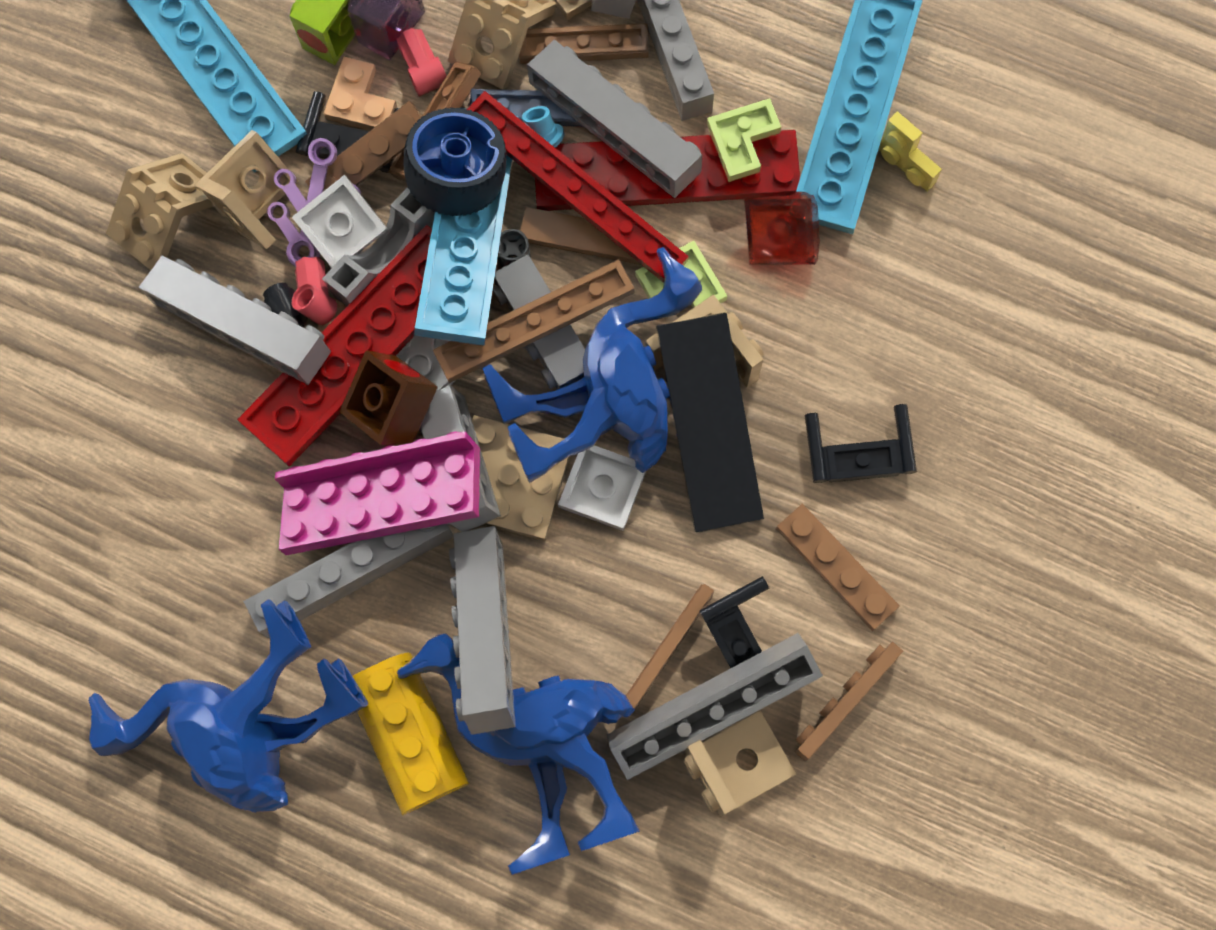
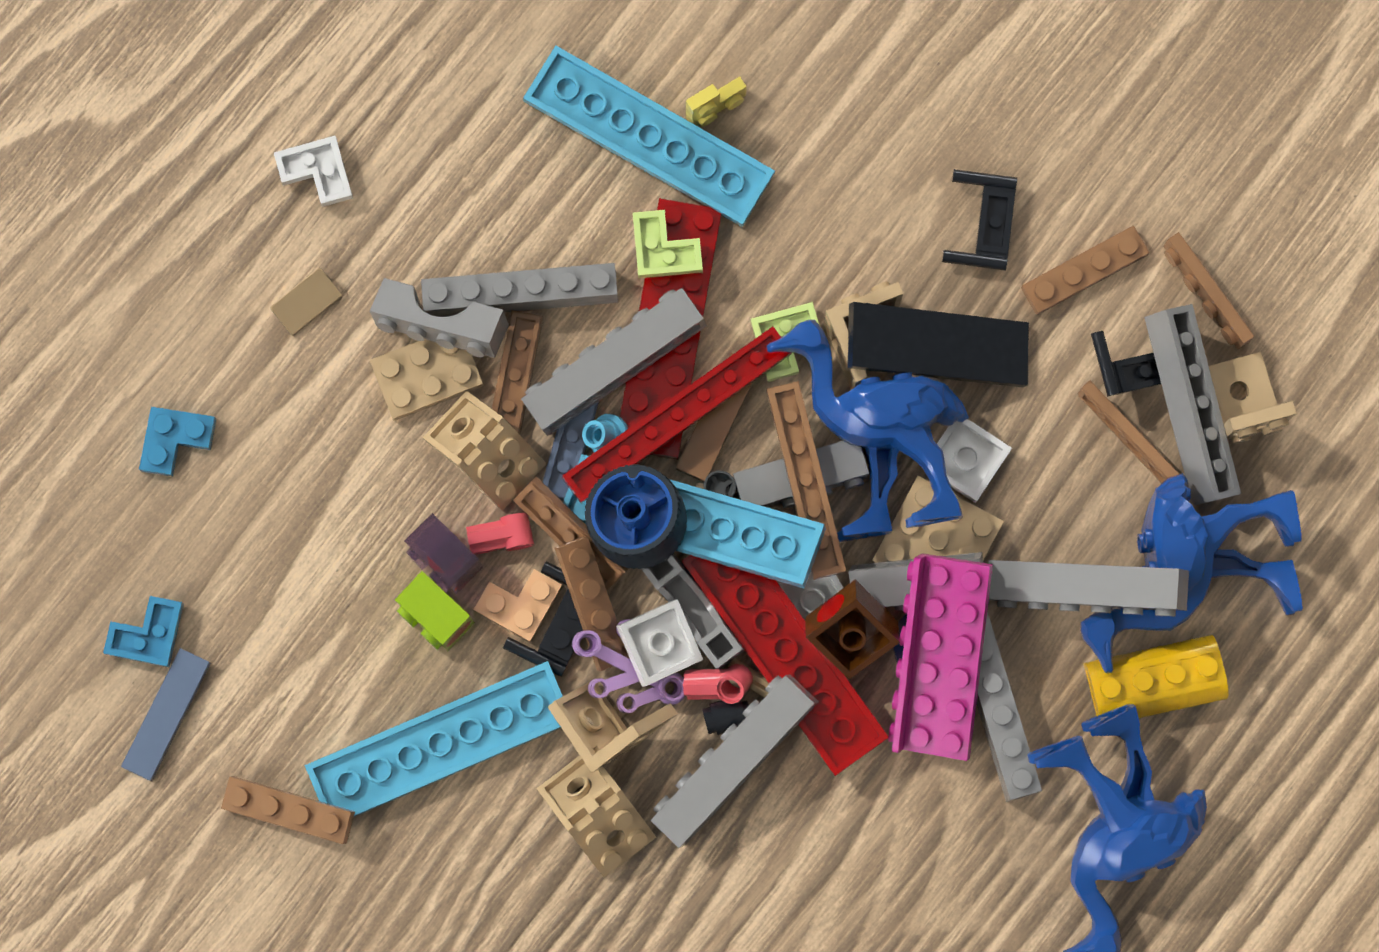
camera: 80 degrees left, 5 degrees up
(782, 229) = (763, 234): clear red slope -> none

